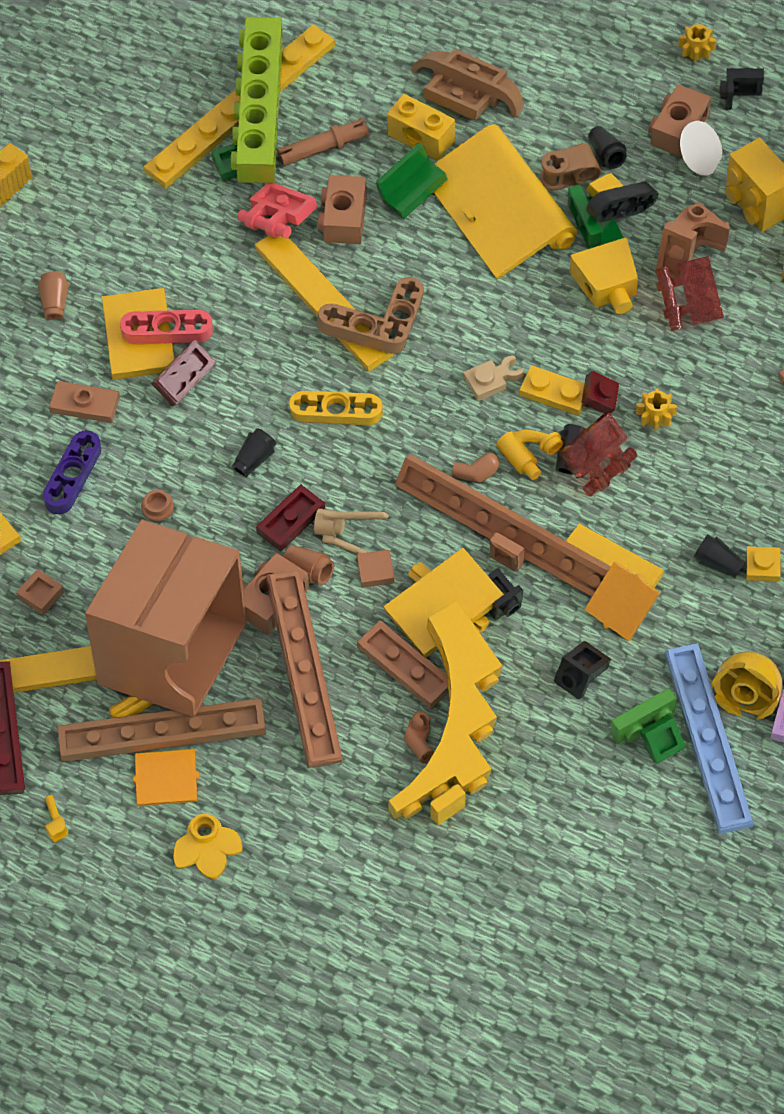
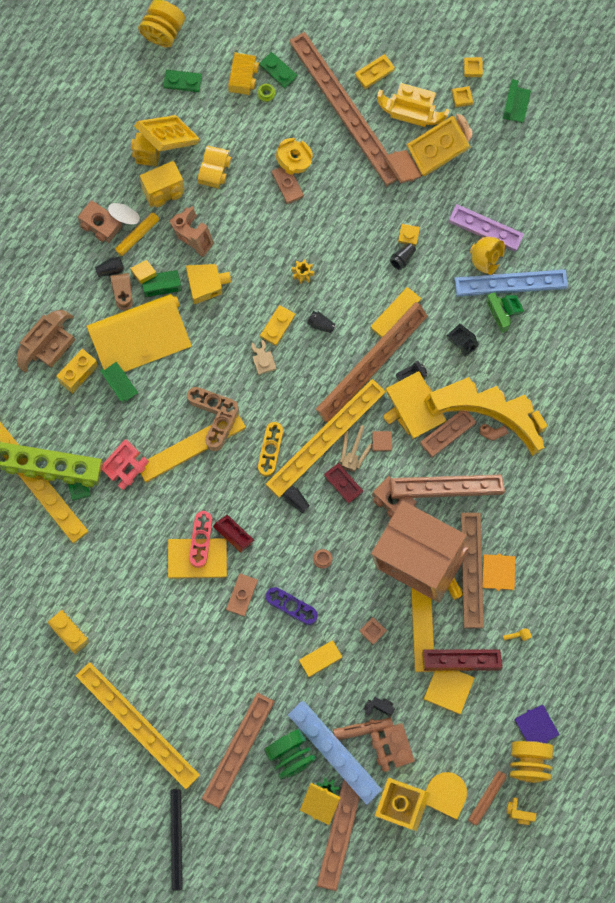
camera: 90 degrees left, 15 degrees up
(53, 293) = (162, 606): nougat cone -> none
(206, 851) = (547, 553): yellow plate -> none
(314, 563) = (376, 476): nougat cone -> none
(322, 142) = (72, 424): nougat pin -> none
(344, 209) = (122, 417): nougat brick -> none
(368, 482) = (325, 438): none -> yellow plate
(478, 471) = (326, 374): nougat arm -> none
(506, 552) = (385, 367): nougat tile -> none
(520, 457) = (316, 353): yellow plant -> none
(592, 447) = (330, 306): clear red plate -> none
(600, 392) = (285, 300): dark red plate -> none
(622, 201) = (159, 263): black beam -> none
(622, 601) = (427, 310): light orange piece -> none
(673, 176) = (137, 234): none -> yellow axle
(697, 42) = (42, 206): yellow gear -> none
(699, 291) = (228, 232): clear red plate -> none
(741, 83) = (76, 180): black bracket -> none

